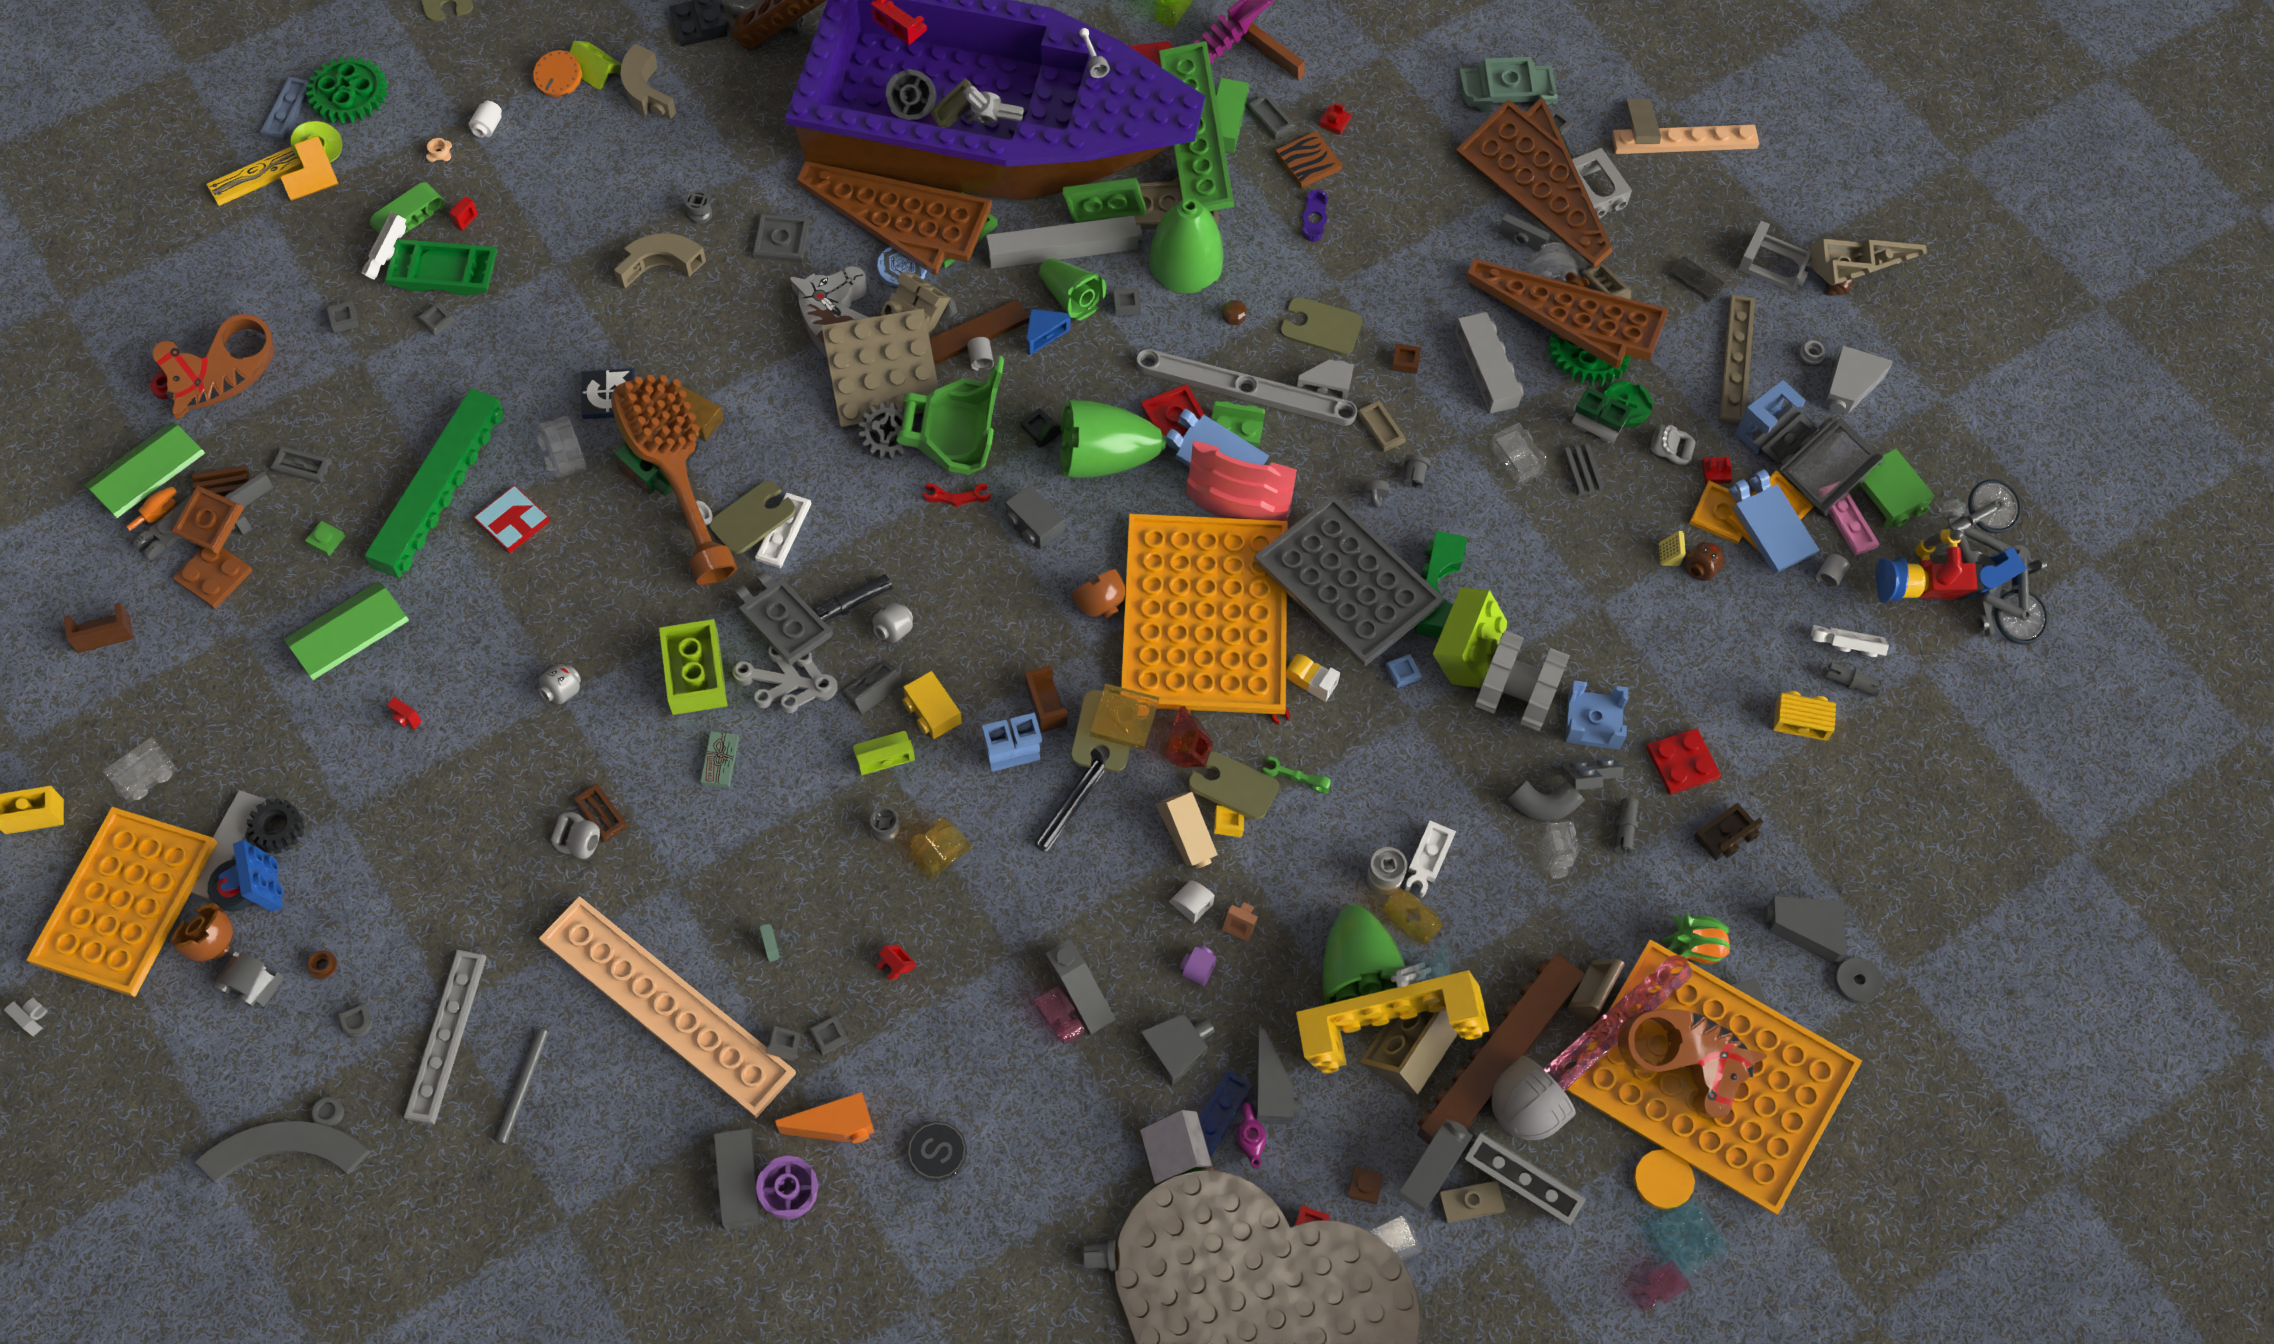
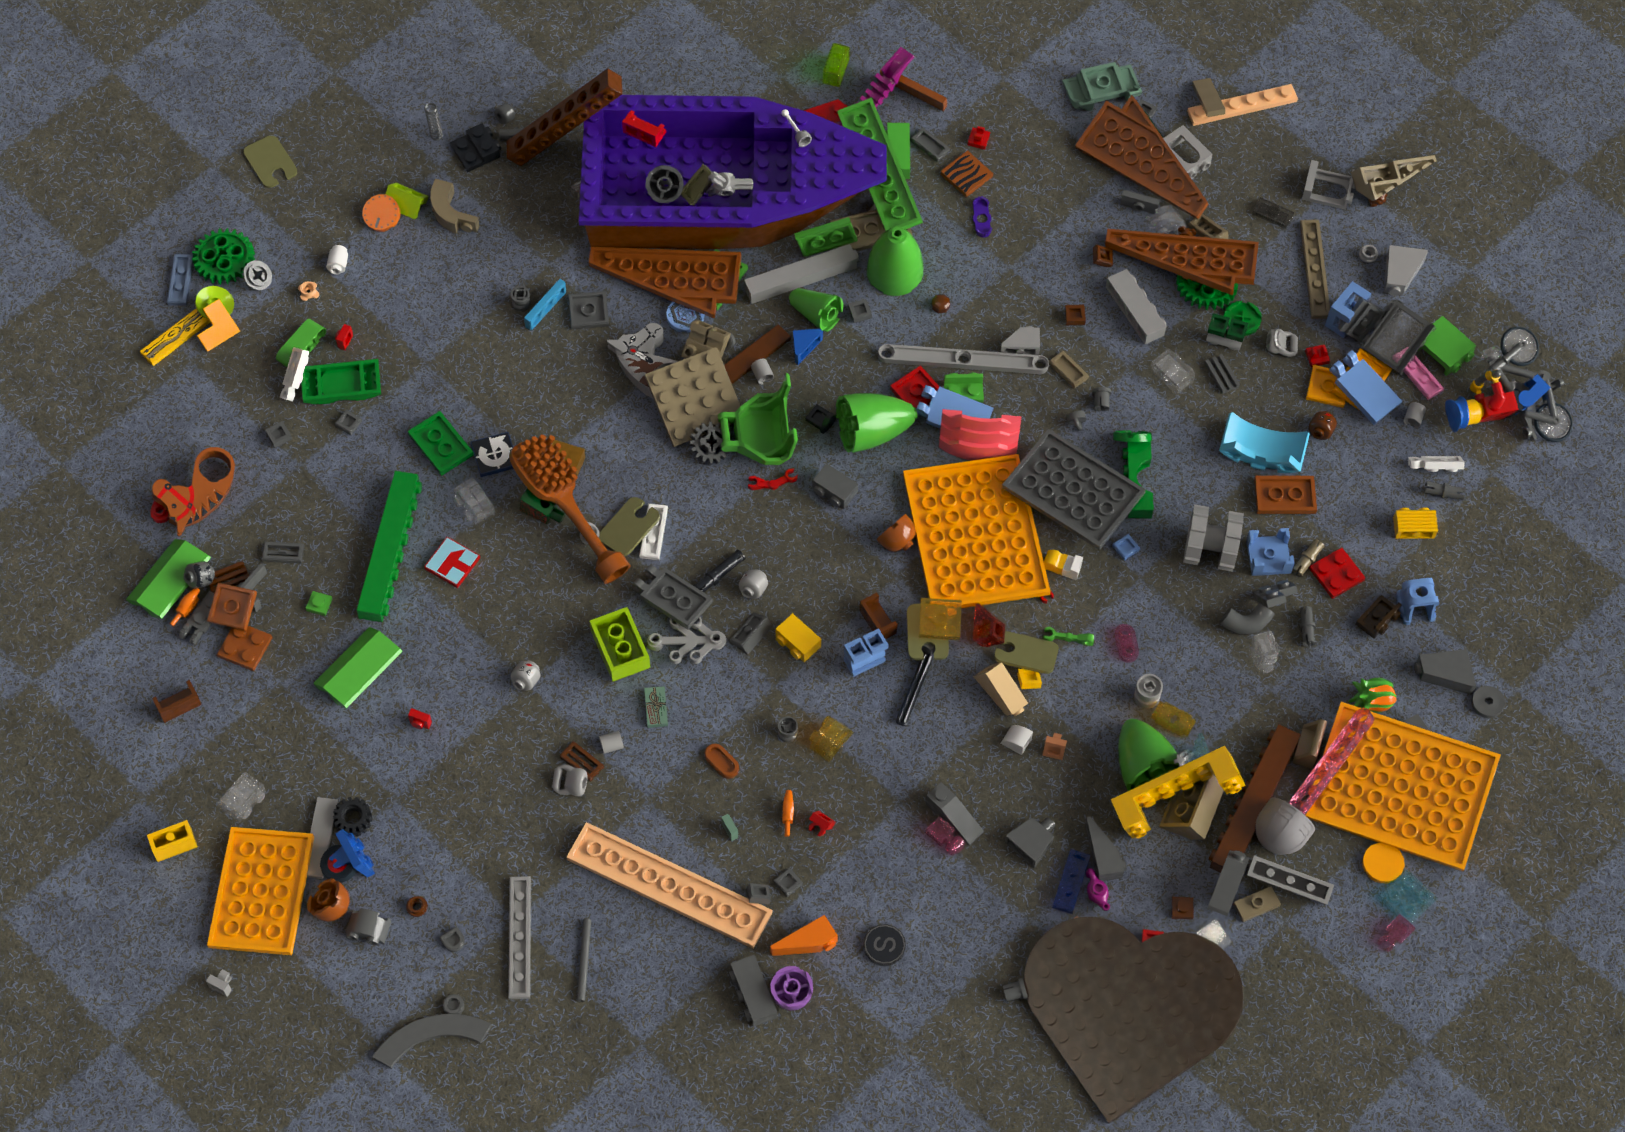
camera: 10 degrees left, 0 degrees up
(178, 470) = (199, 574): none -> dark grey head
(383, 109) = (265, 275): none -> gear
(543, 366) = (440, 443): none -> green plate
(645, 794) = (611, 742): none -> light grey beam
(659, 250) = (501, 337): dark tan arch -> none
(727, 220) = (545, 304): none -> dark azure tile
(786, 850) = (721, 761): none -> dark orange tile
(854, 937) = (788, 812): none -> orange hand
(884, 752) = (772, 678): lime panel -> none
(1175, 1146) = (1048, 907): flat silver piece -> none
(1198, 965) = (1033, 782): medium lavender plate -> none
(1326, 326) = (1010, 302): olive piece -> none
(1373, 798) = (1126, 642): none -> clear pink plate
(1429, 856) = (1175, 675): white plate -> none
(1442, 526) = (1131, 436): none -> green tile
(1460, 292) = (1102, 256): none -> reddish brown tile
(1470, 637) = (1169, 513): lime brick -> none
(1617, 573) = (1263, 446): none -> medium azure panel
(1634, 643) = (1285, 495): none -> dark orange plate
(1647, 733) = (1308, 557): none -> dark tan pin
(1672, 549) = (1298, 420): light yellow slope -> none
(1714, 1054) = (1388, 764): dark orange animal -> none
(1776, 817) = (1409, 599): none -> medium blue piece

